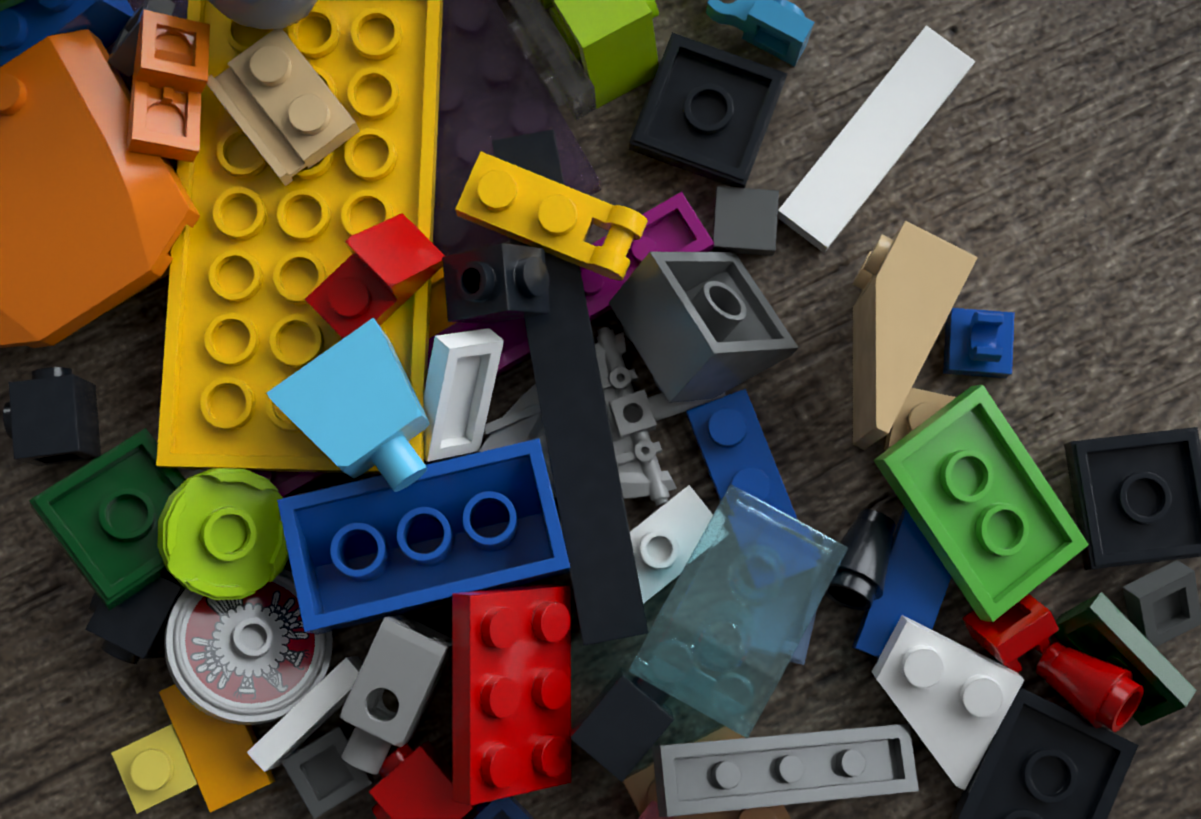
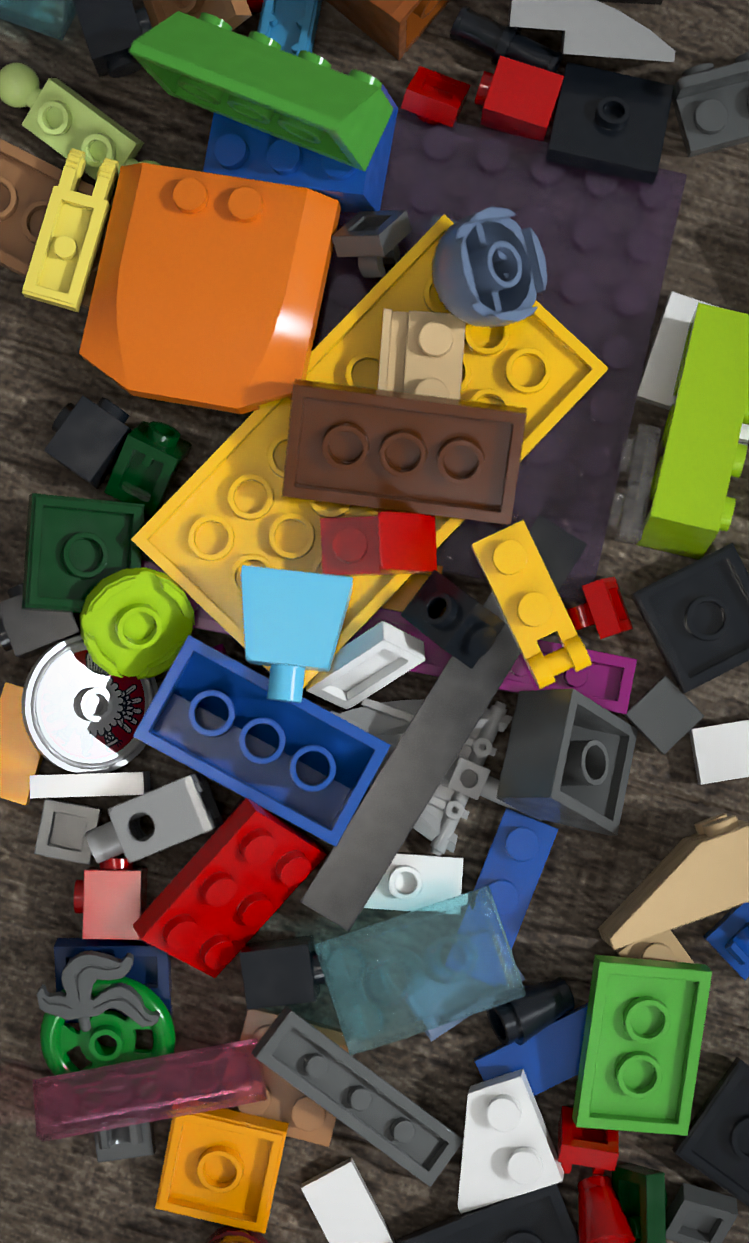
camera: 45 degrees right, 5 degrees up
(121, 395) = (147, 465): none -> dark green bracket
(168, 86) = (356, 293): orange slope -> none
(323, 178) = (403, 451): none -> reddish brown plate
(616, 176) = (603, 608): none -> red tile

